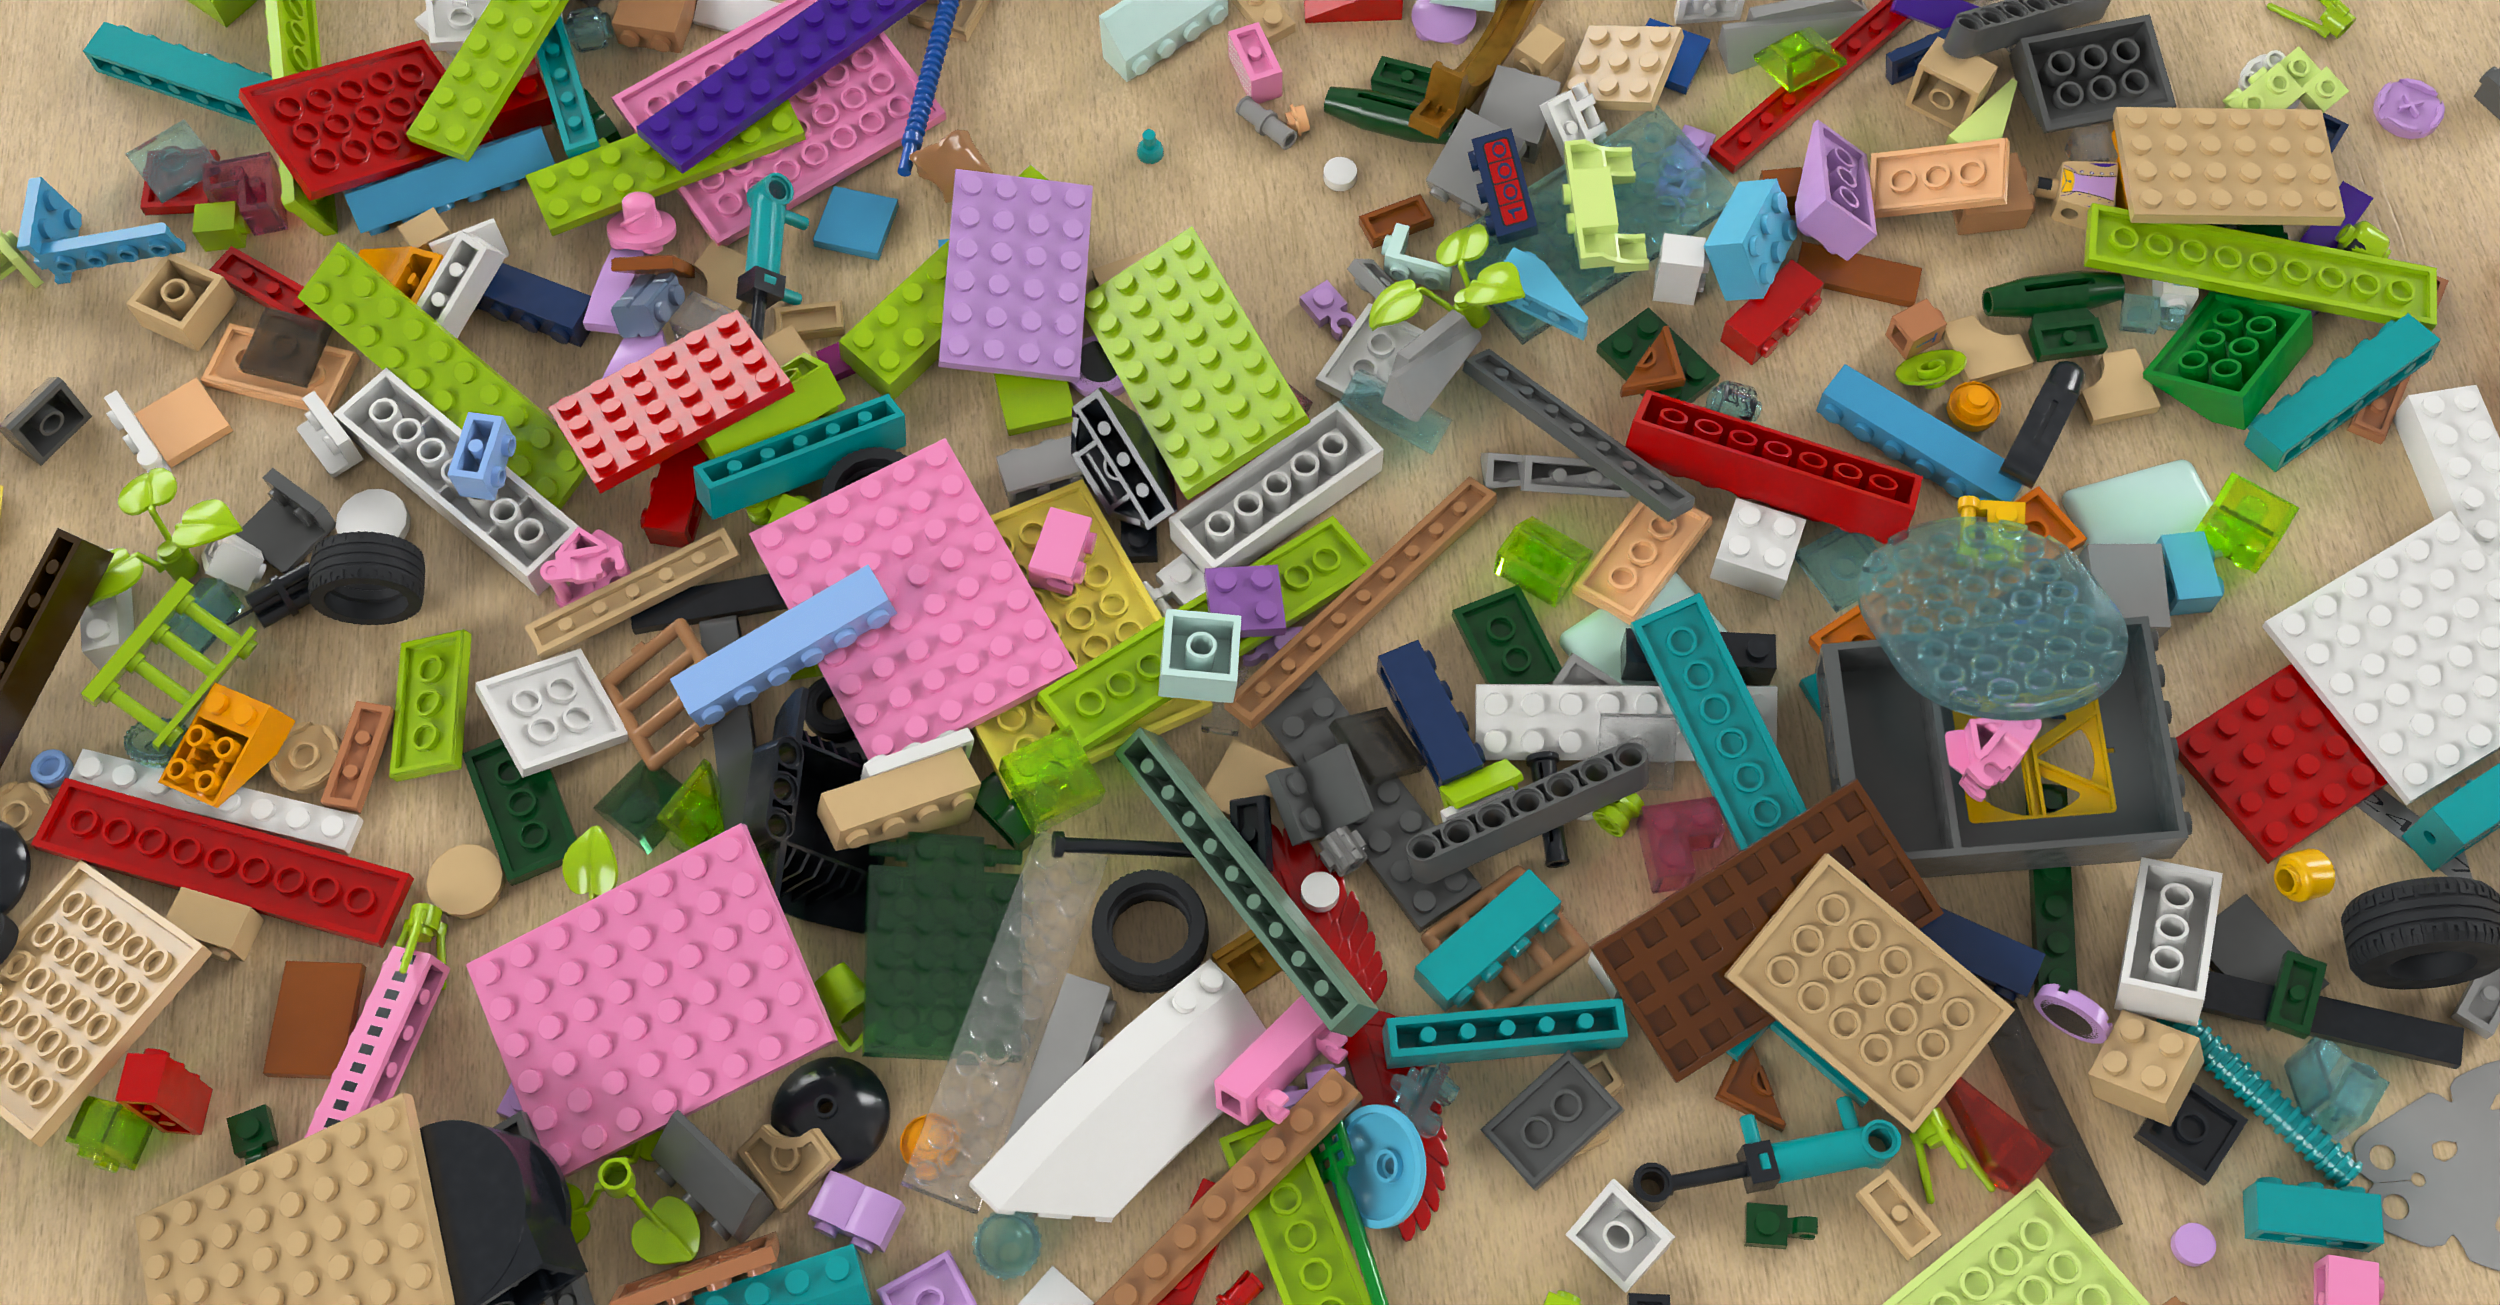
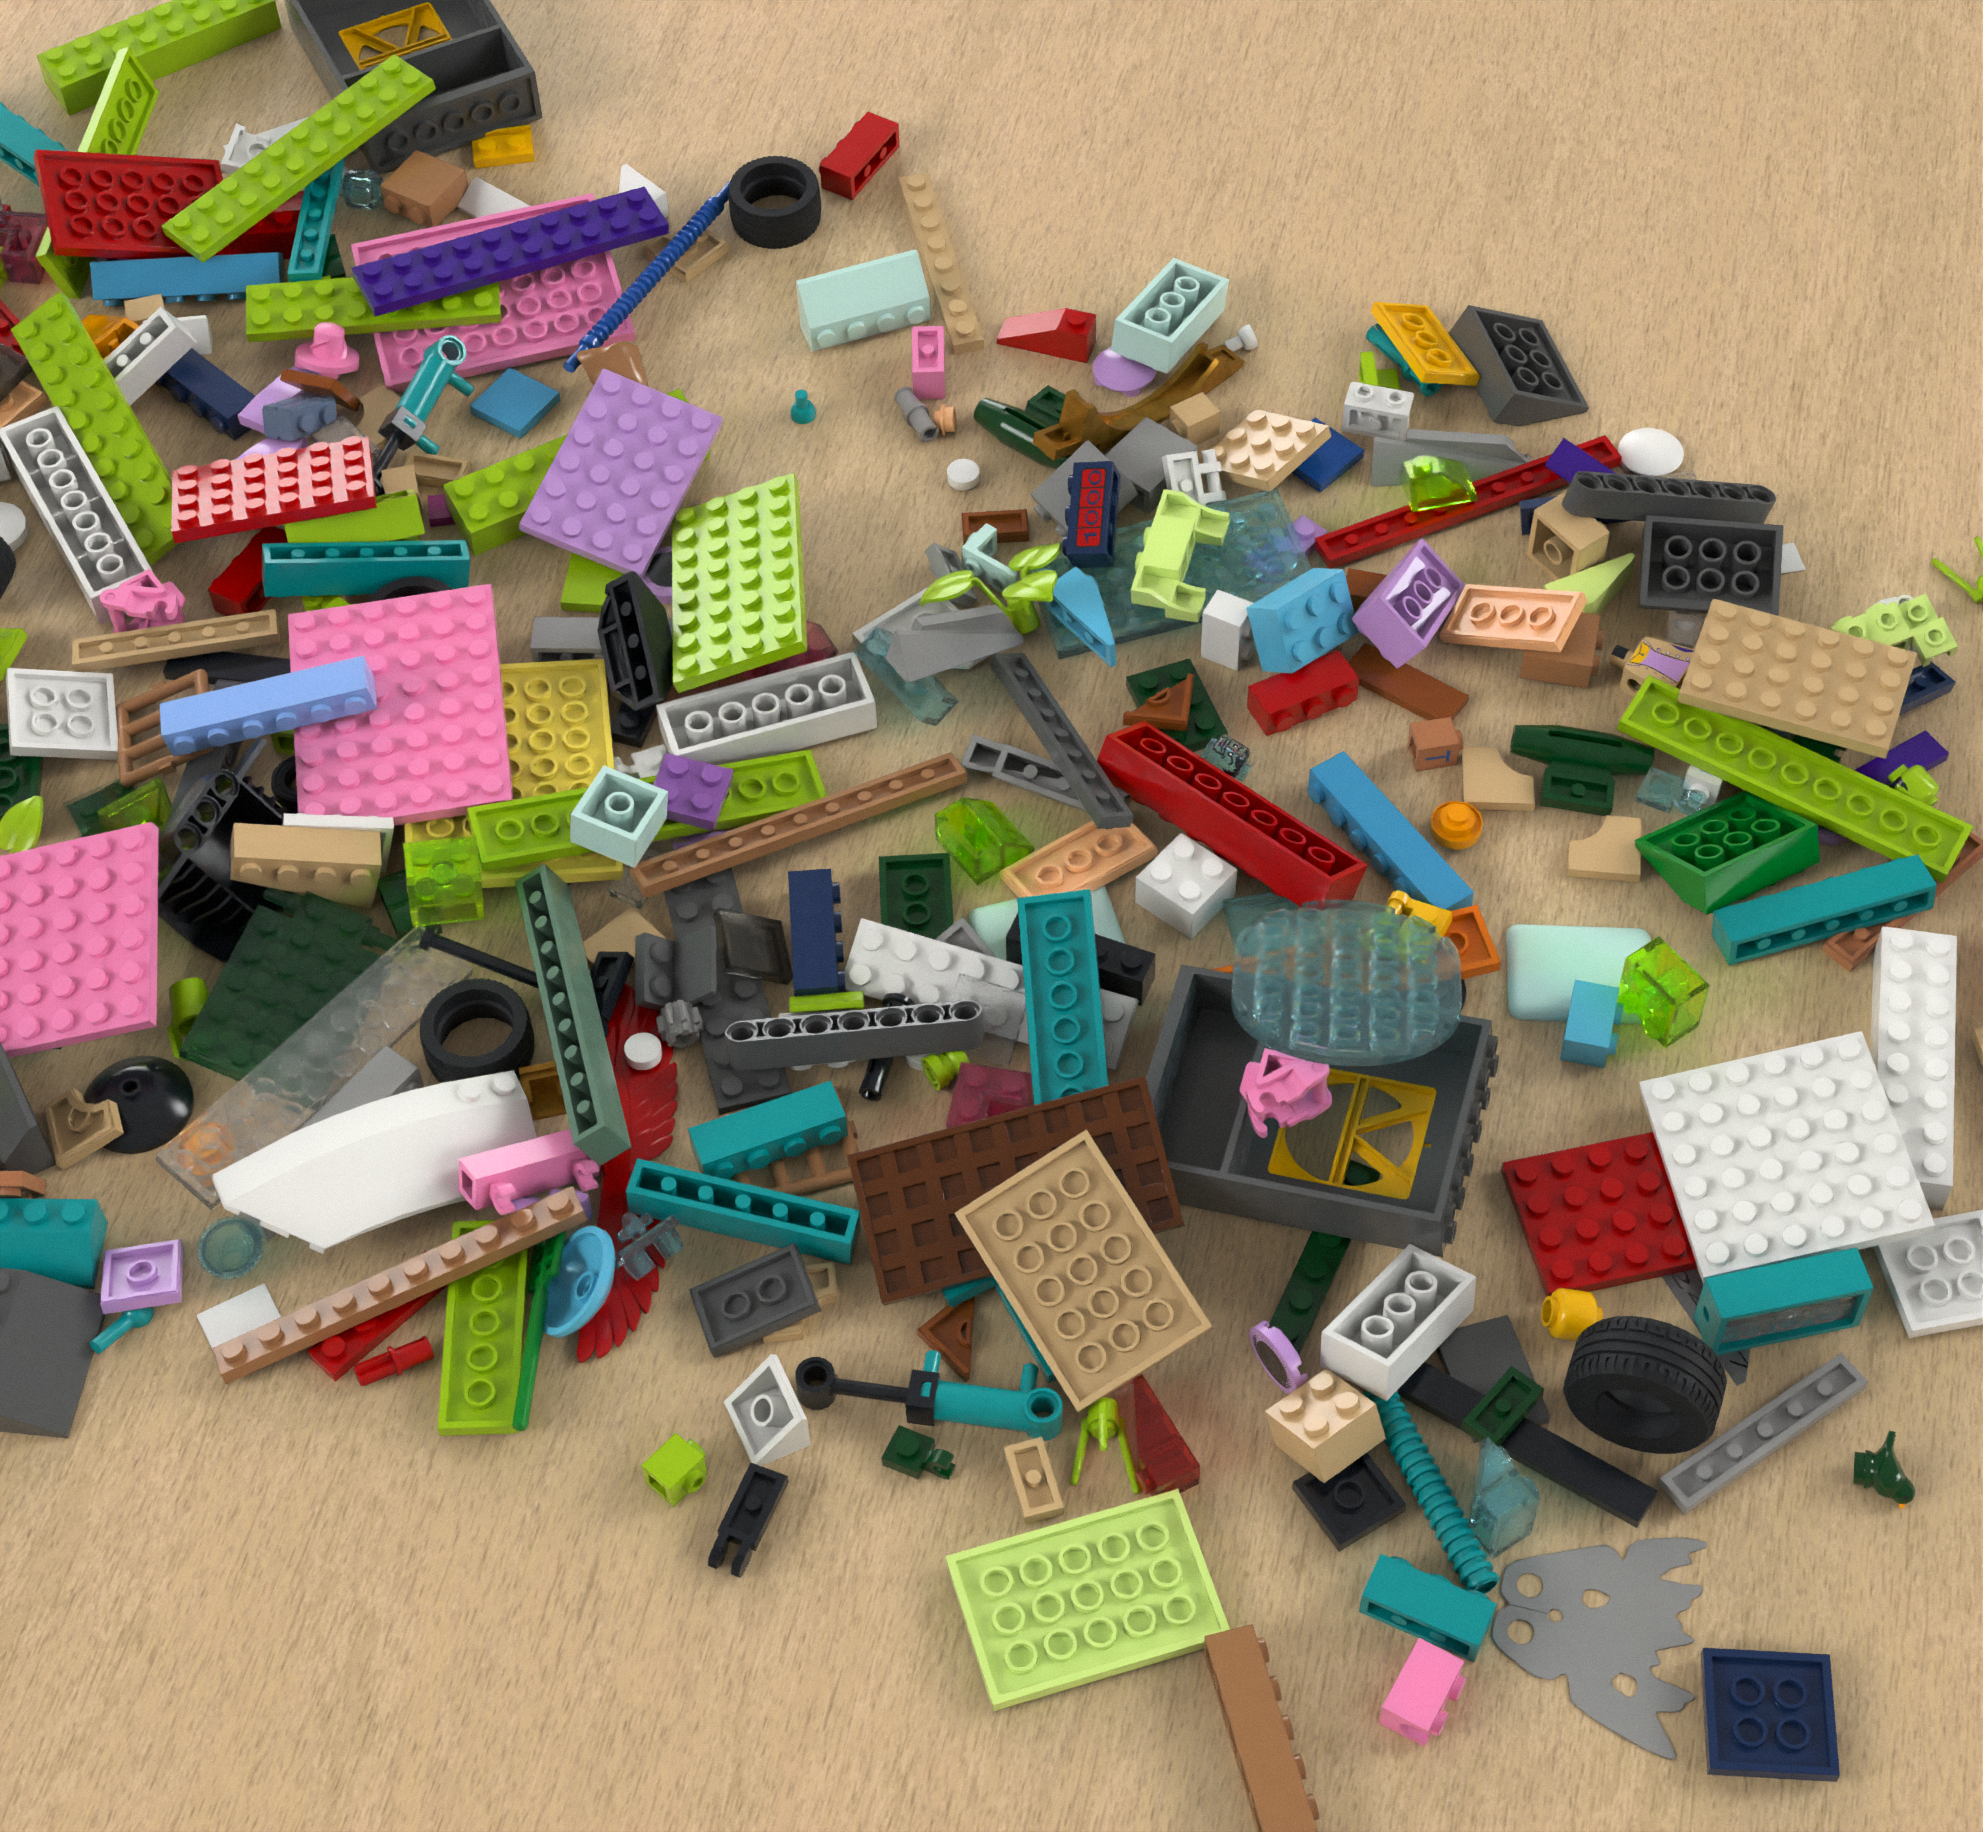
camera: 20 degrees right, 10 degrees down
(482, 456) = (95, 490): light blue brick -> none
(856, 1212) = (117, 1183): lavender brick -> none
(1061, 552) = (549, 706): bright pink brick -> none
(1327, 306) = (895, 580): lavender plate -> none
(1931, 368) = (1430, 782): lime dish -> none
(1987, 954) = (1217, 1280): dark blue brick -> none
(2044, 424) = (1507, 853): black piece -> none
(2052, 1123) = (1219, 1450): clear smoke plate -> none
(2132, 579) = (1523, 1017): light grey brick -> none
(2193, 1244) = (1303, 1597): lavender tile -> none

